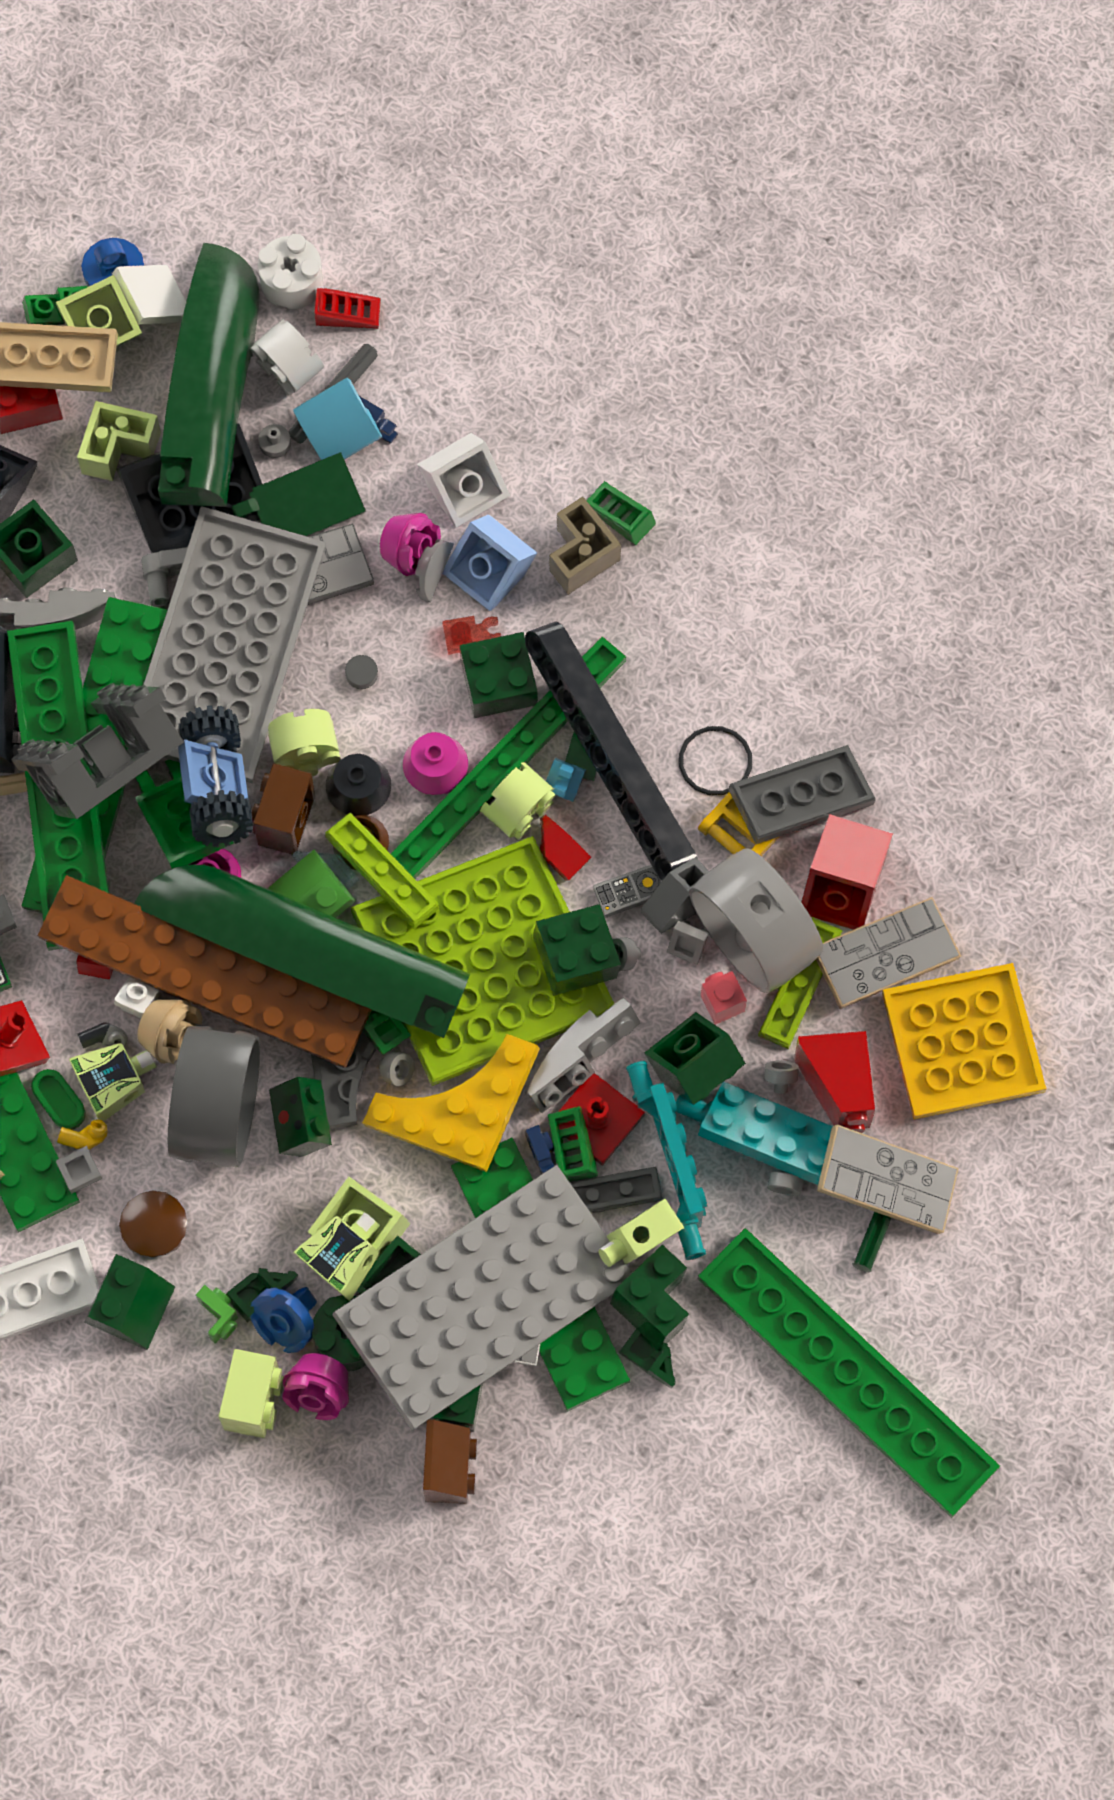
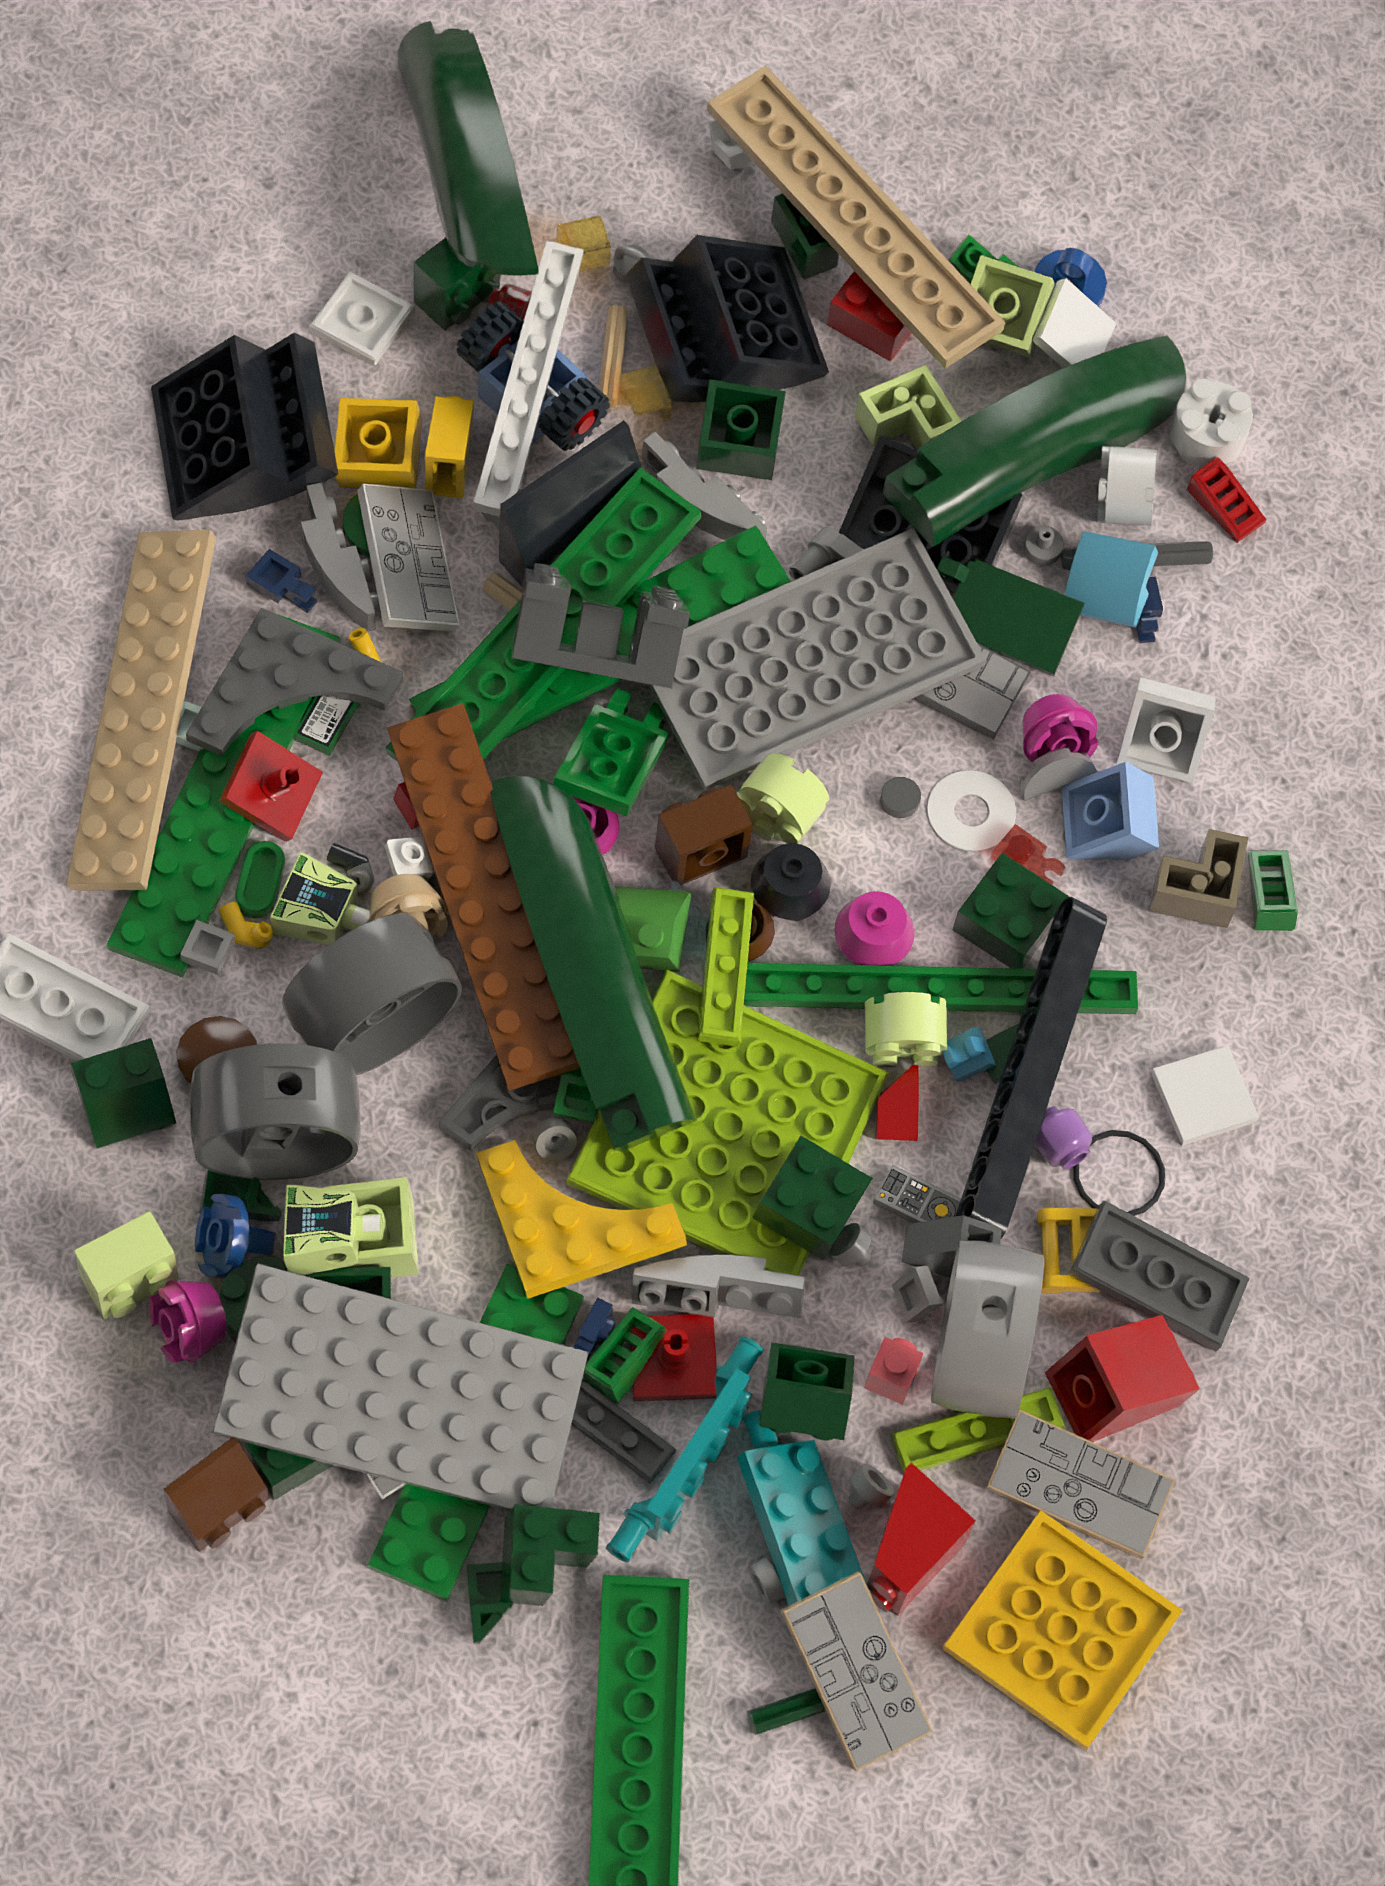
camera: 40 degrees right, 5 degrees down
(214, 776) = (667, 743): plate -> none
(217, 1304) = (179, 1192): bright green bracket -> none
(237, 1219) = (280, 1093): none -> dark grey cylinder
(300, 1116) = (429, 1092): dark green brick -> none
(415, 660) = (971, 838): none -> white gear
(640, 1234) = (605, 1487): yellowish green torso -> none
(669, 771) = (1063, 1138): none -> medium lavender head
(712, 668) = (1204, 1095): none -> white tile

